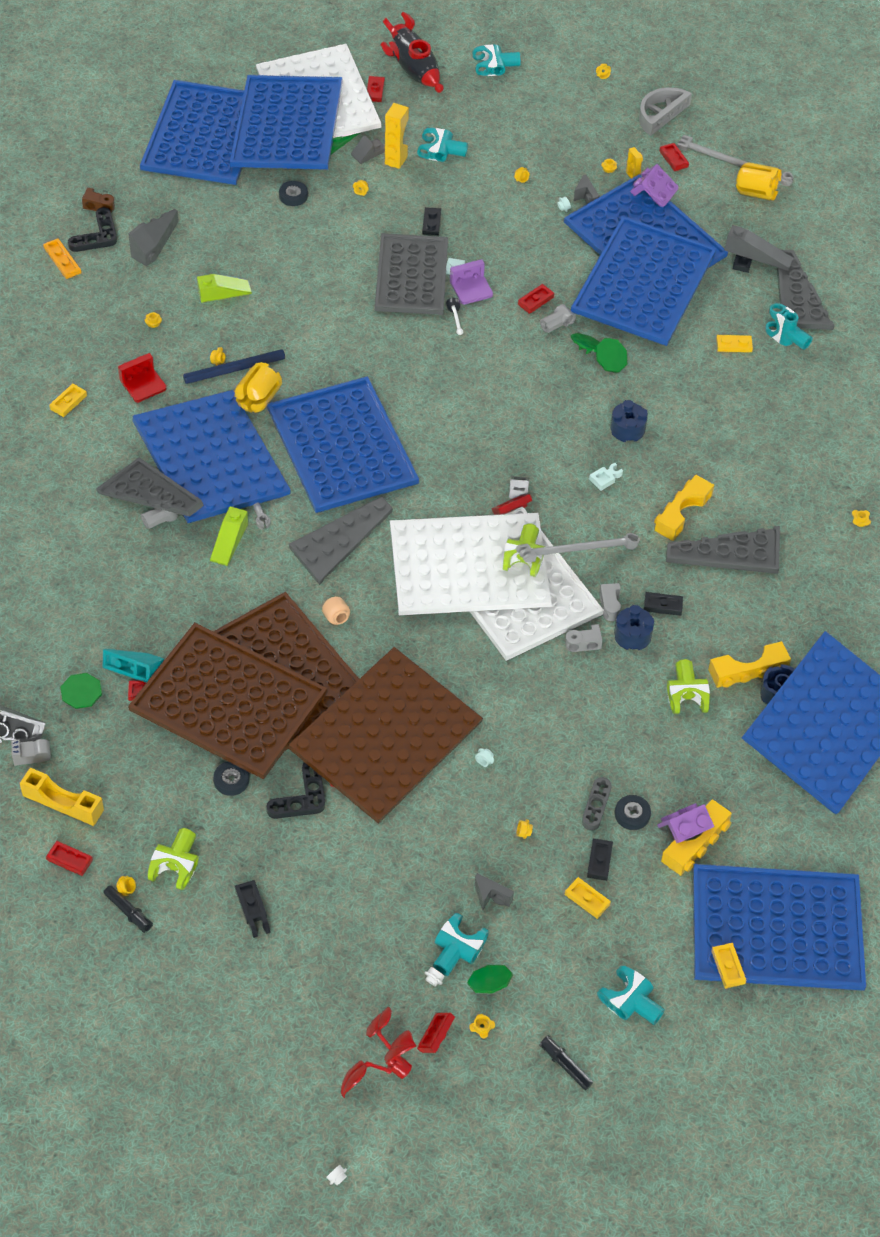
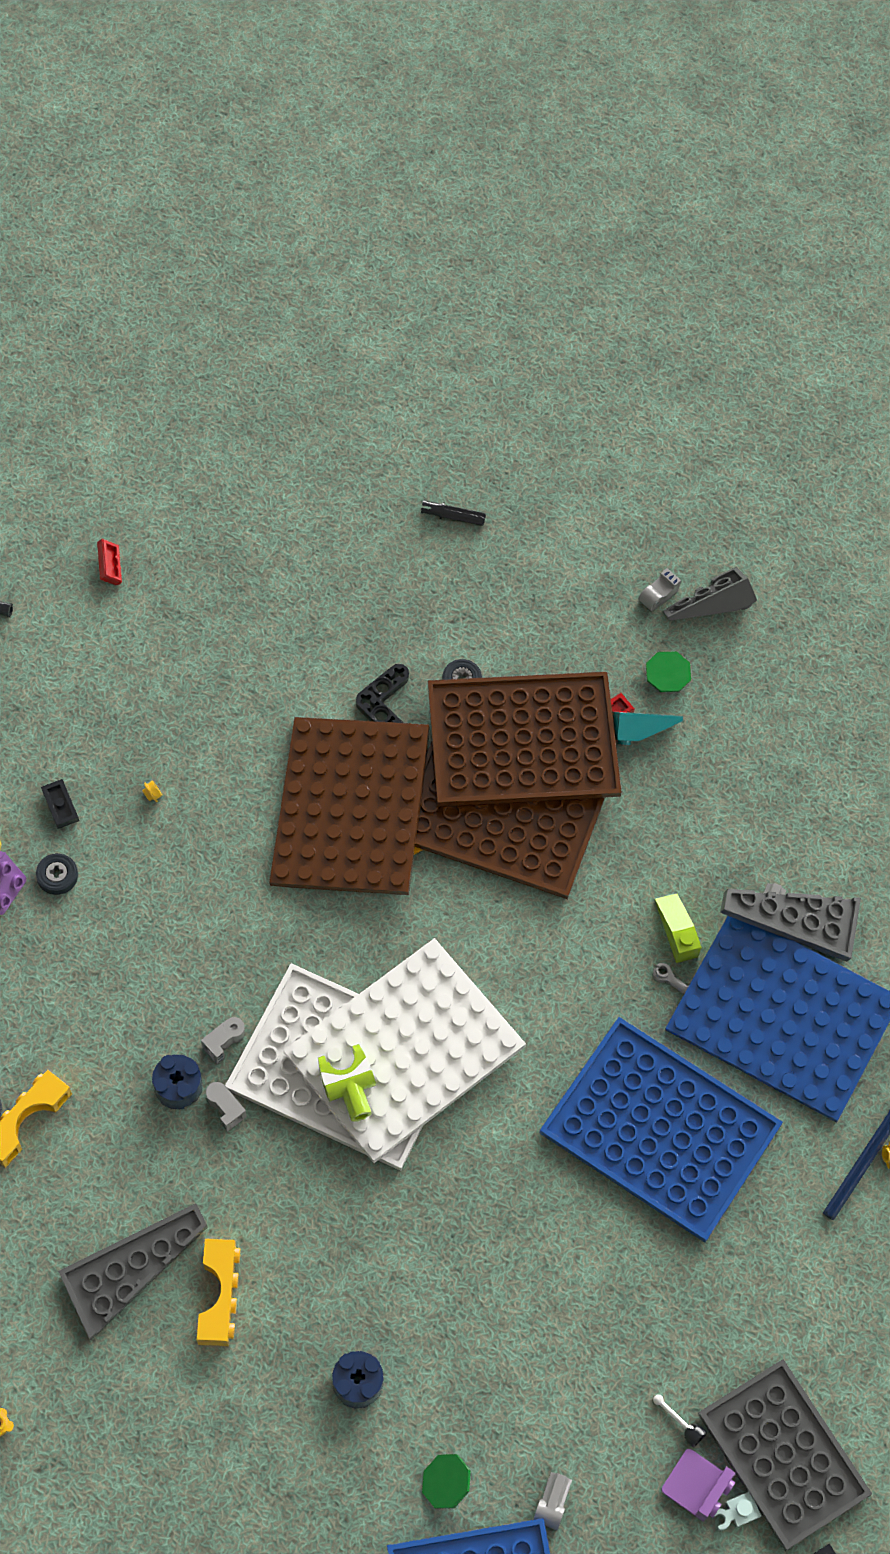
camera: 145 degrees right, 10 degrees up
(43, 790) = (614, 561): yellow arch -> none
(69, 858) = (539, 524): red plate -> none
(126, 885) = (470, 528): yellow plate -> none
(175, 858) = (448, 575): lime connector -> none
(252, 906) = (347, 575): black hinge -> none
(257, 388) = (804, 1122): yellow cylinder -> none
(334, 542) = (570, 994): dark grey wing -> none
(336, 610) = (501, 908): light nougat head -> none
(337, 1175) = (115, 414): white plate -> none
(394, 1061) = (124, 515): red plant -> none
(434, 977) = (143, 608): white plate -> none
(457, 945) = (141, 644): teal connector -> none
(482, 1020) = (74, 588): yellow plate -> none
(484, 757) = (239, 842): light aqua plate -> none
(489, 889) = (147, 710): dark grey slope -> none
(490, 979) = (91, 630): green piece -> none
(517, 502) = (414, 1165): red plate -> none
(518, 486) = (425, 1198): slope -> none
(529, 554) = (333, 1062): light grey hinge -> none
(536, 298) = (603, 1520): red plate -> none
(585, 342) = (490, 1482): green piece -> none
(587, 898) = (49, 759): yellow plate -> none
(595, 796) = (101, 852): dark grey beam -> none
(603, 478) = (336, 1278): light aqua plate -> none
(663, 603) = (165, 1141): black plate -> none
(687, 688) = (79, 1048): lime connector -> none

